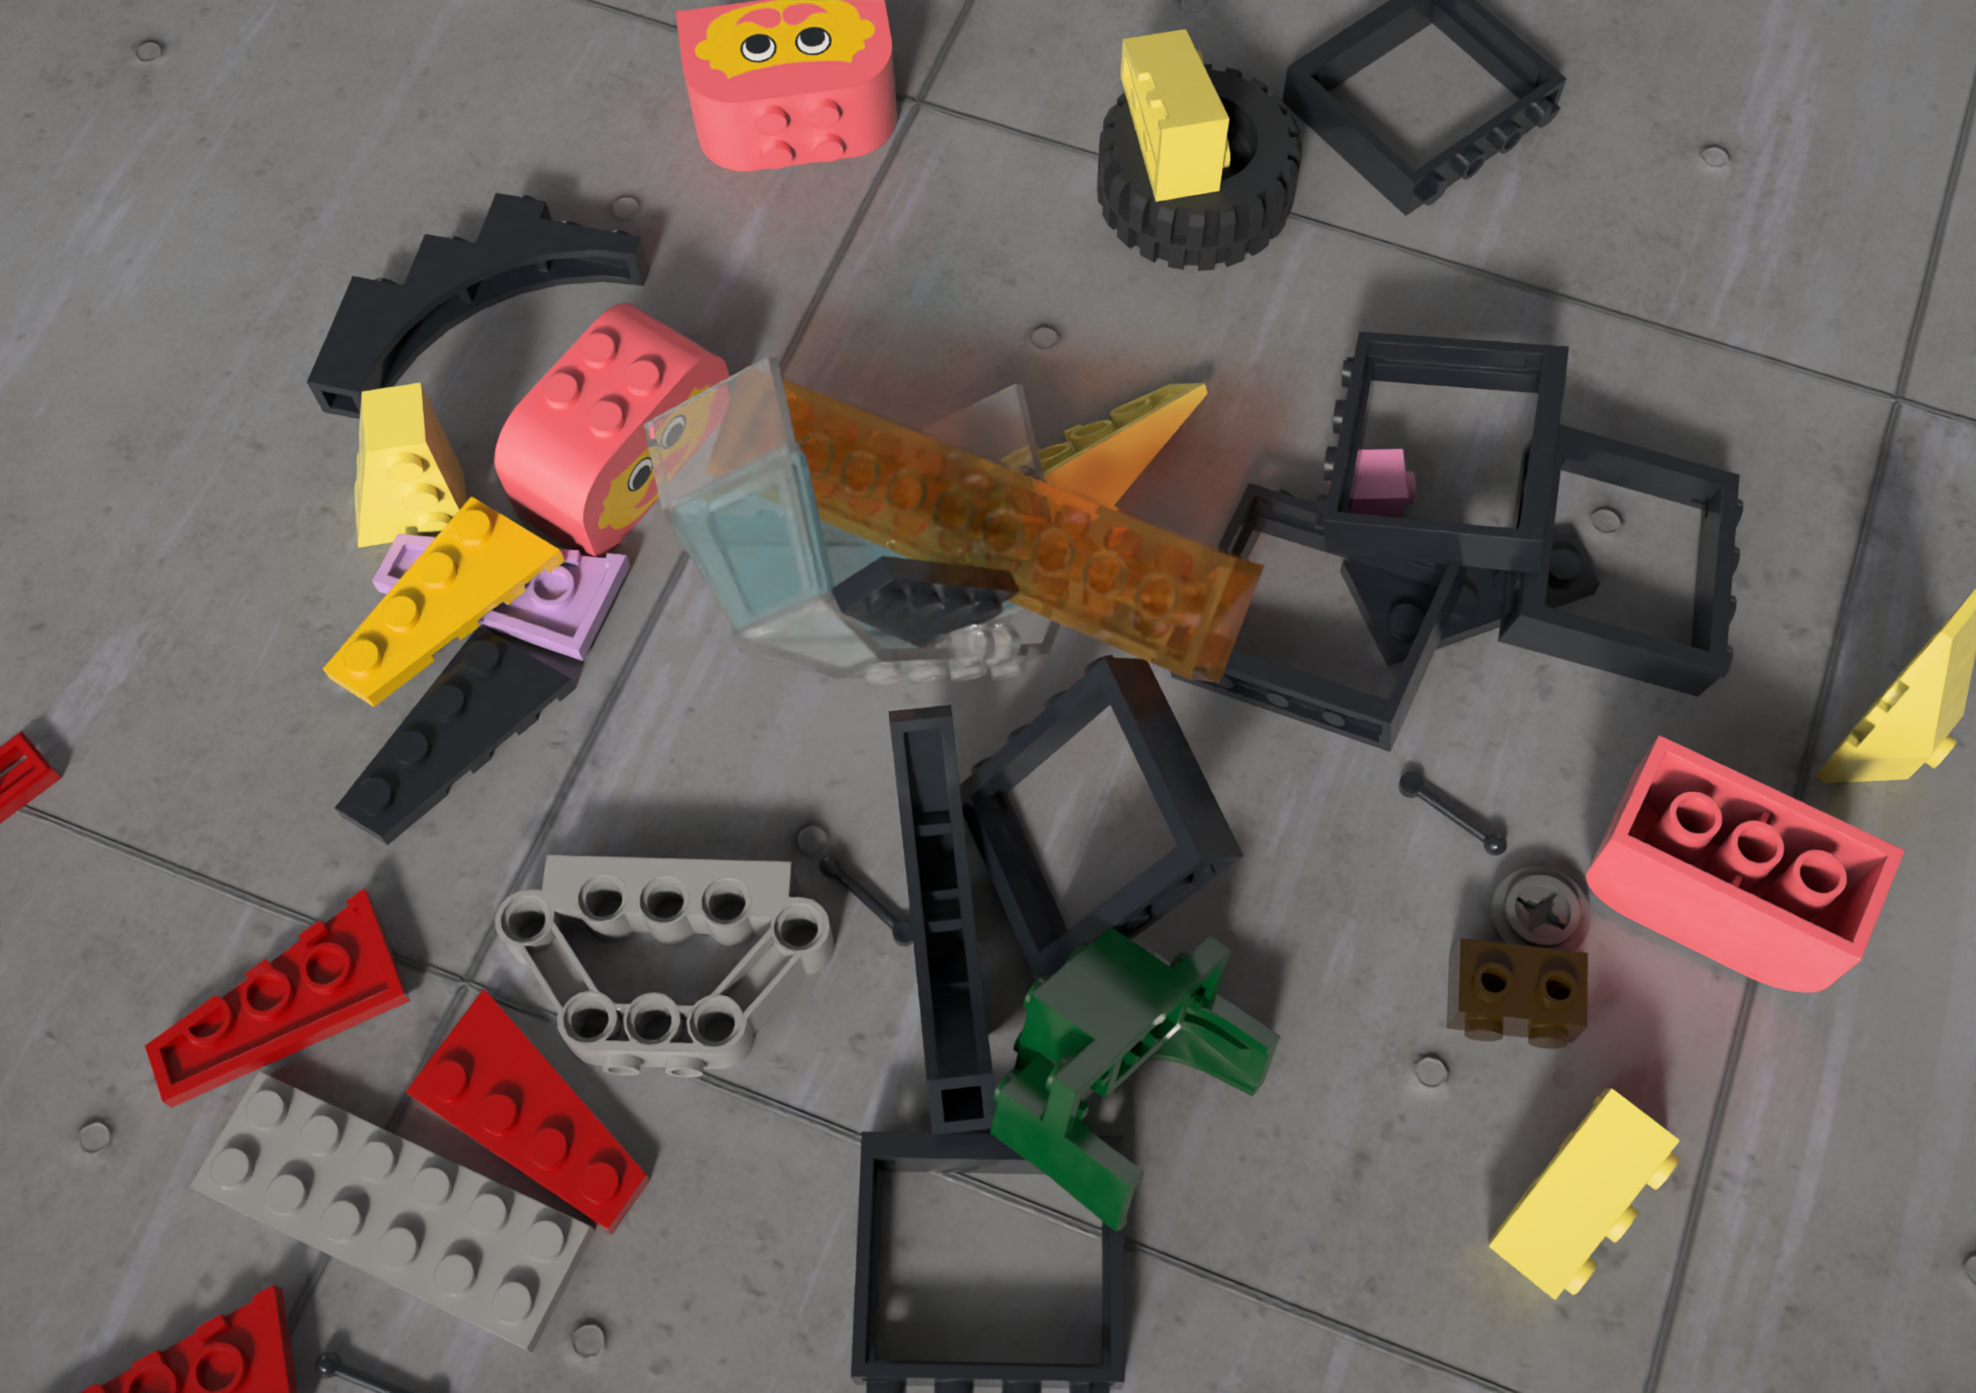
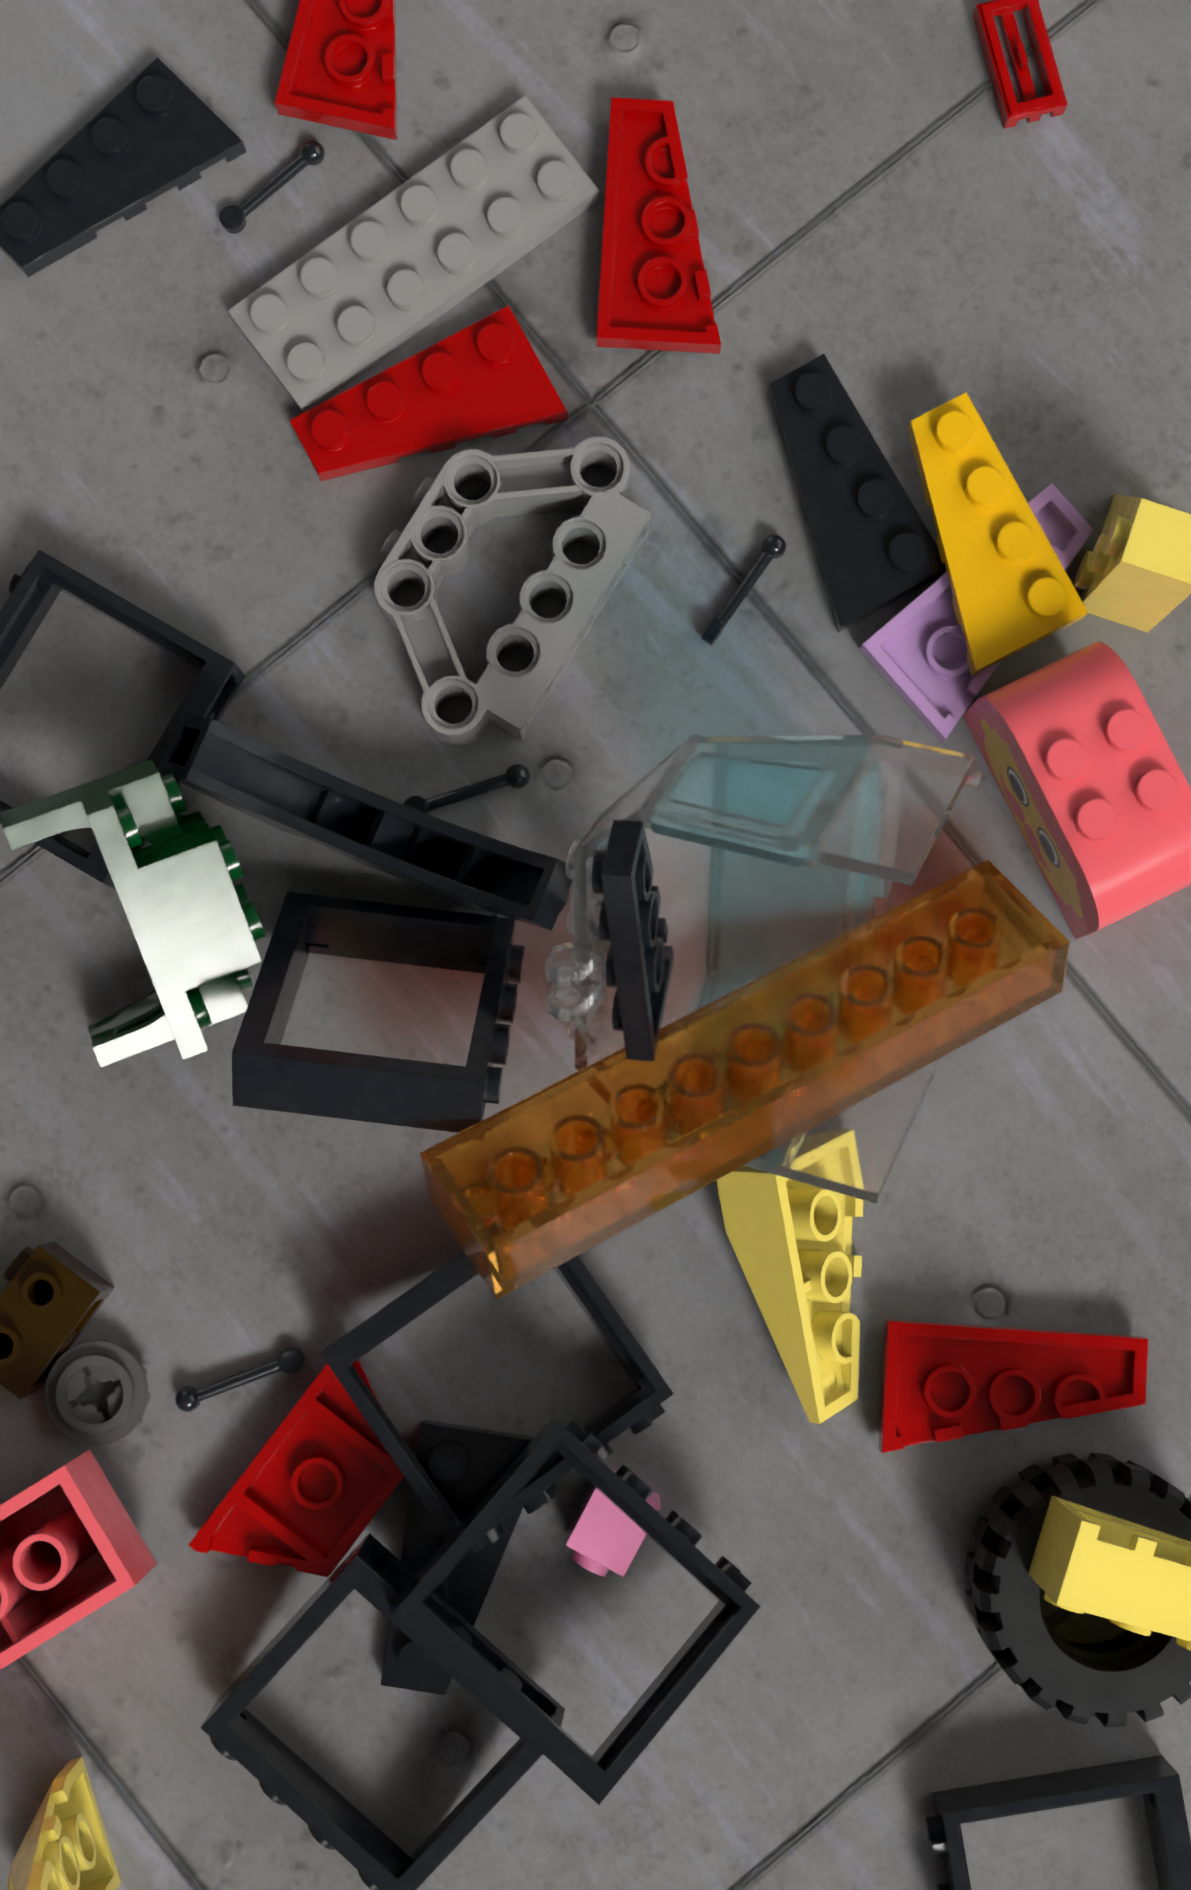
camera: 120 degrees right, 20 degrees up
(527, 767) = (773, 548): none -> black hinge
(1098, 308) = (980, 1378): none -> red wing
(1496, 713) = (307, 1486): none -> red wing

